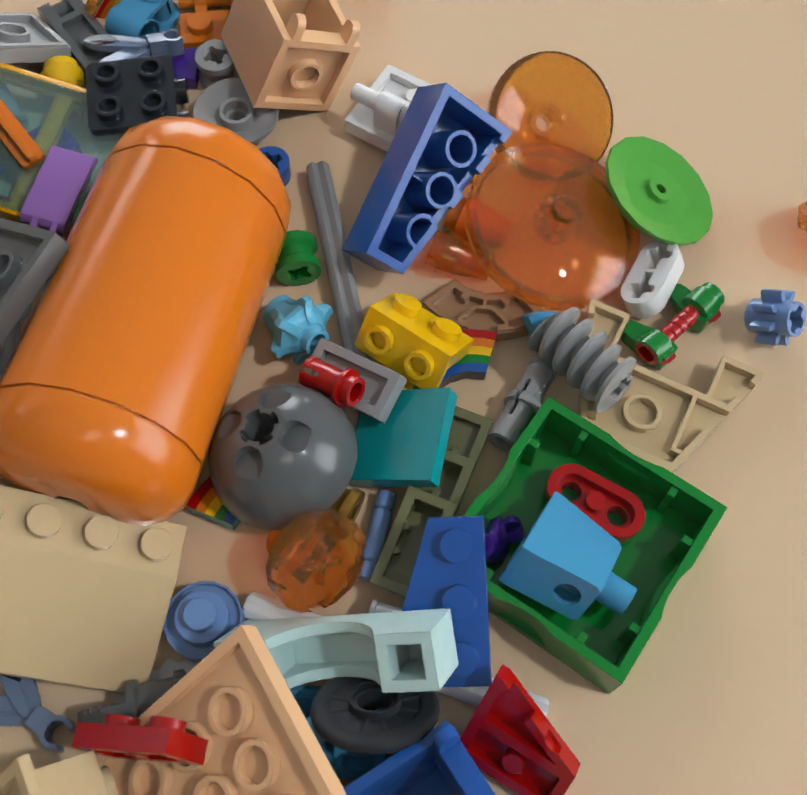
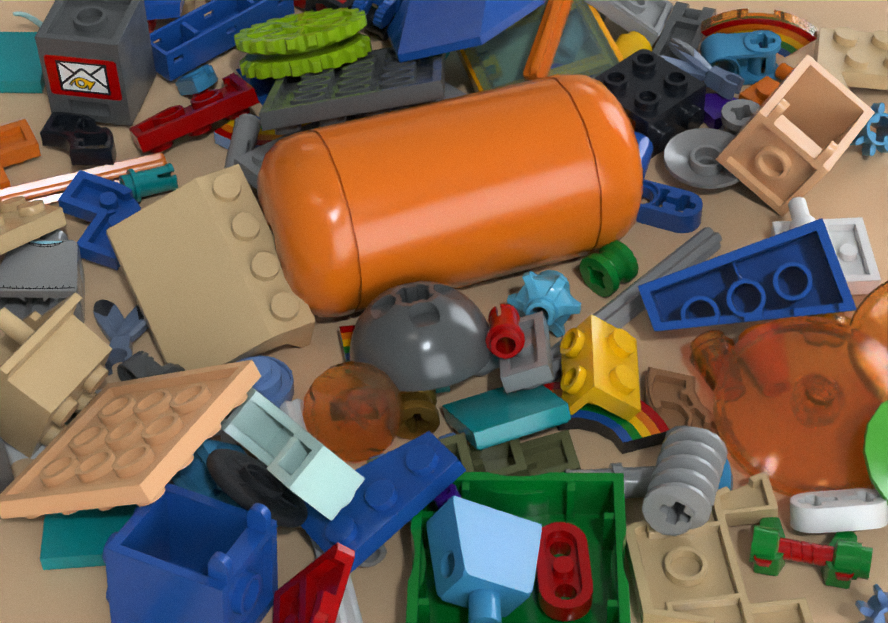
camera: 60 degrees right, 20 degrees down
(125, 739) = (137, 370): red plate -> none

